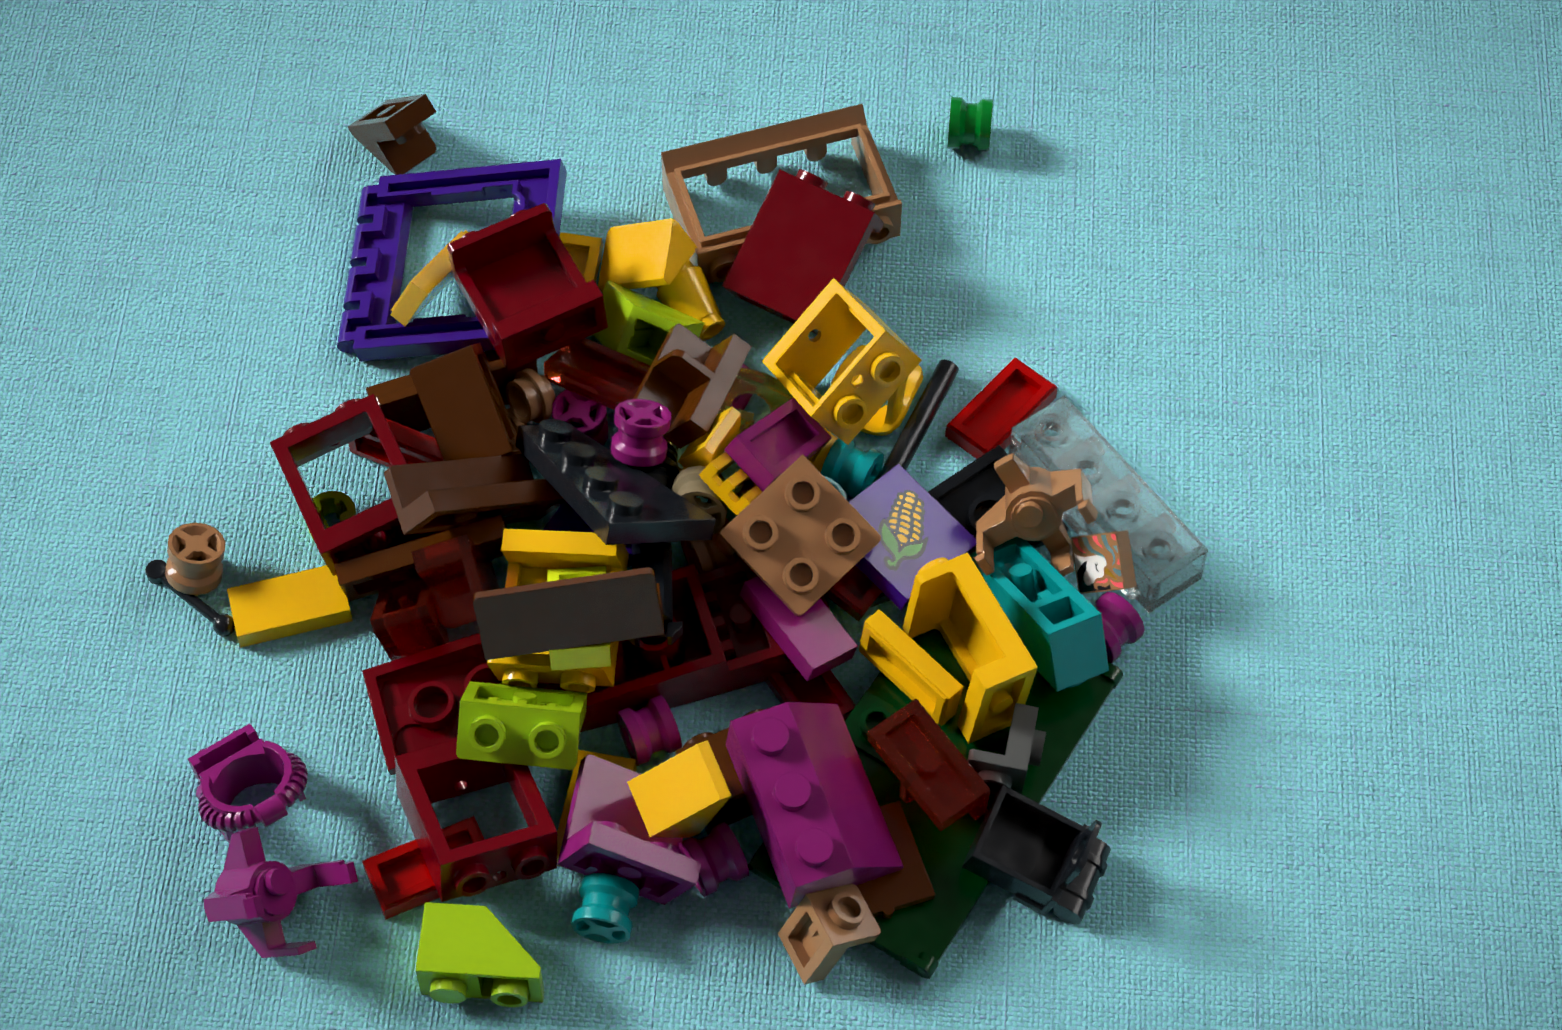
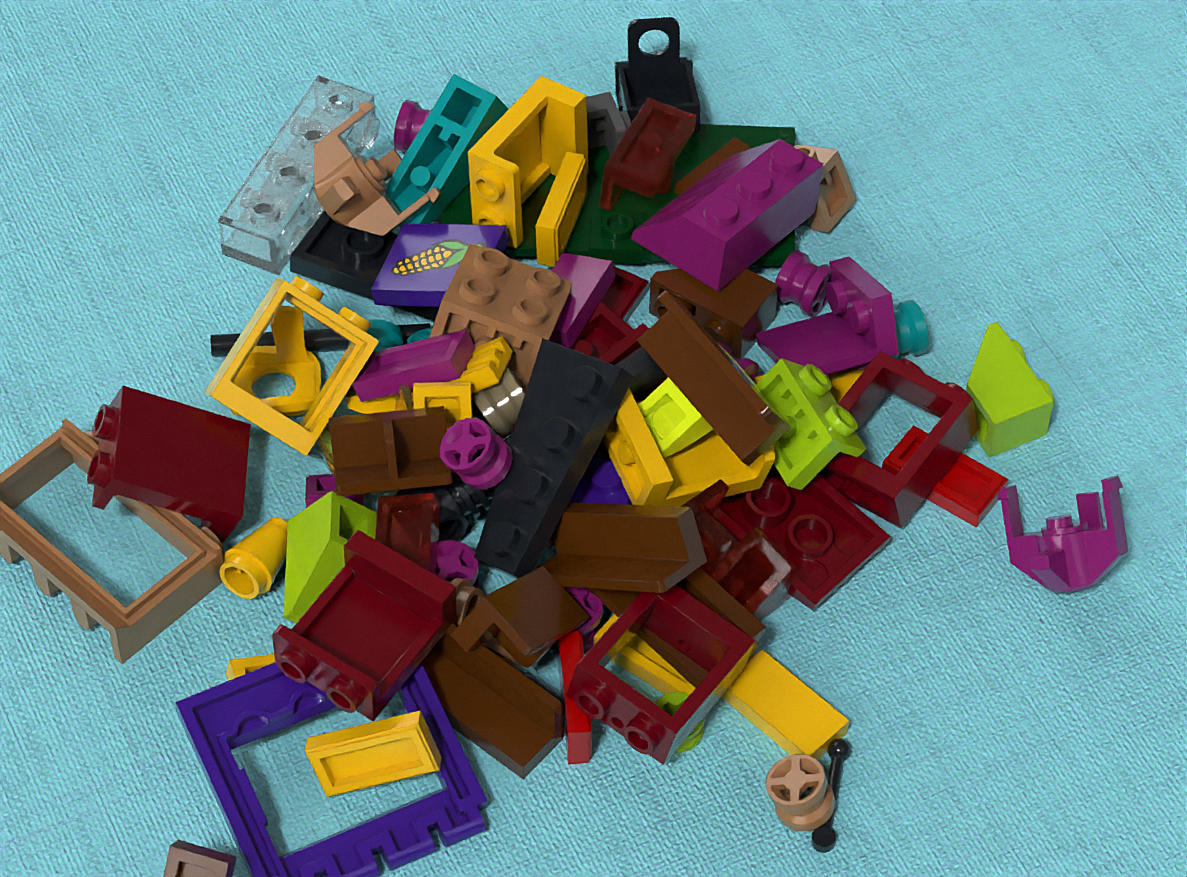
camera: 120 degrees left, 5 degrees down
(240, 763) = (974, 659): magenta piece -> none
(645, 254) = (247, 594): yellow slope -> none
(681, 793) = (787, 282): yellow slope -> none
(999, 407) = (226, 288): red tile -> none
(1103, 562) = (373, 134): tile -> none

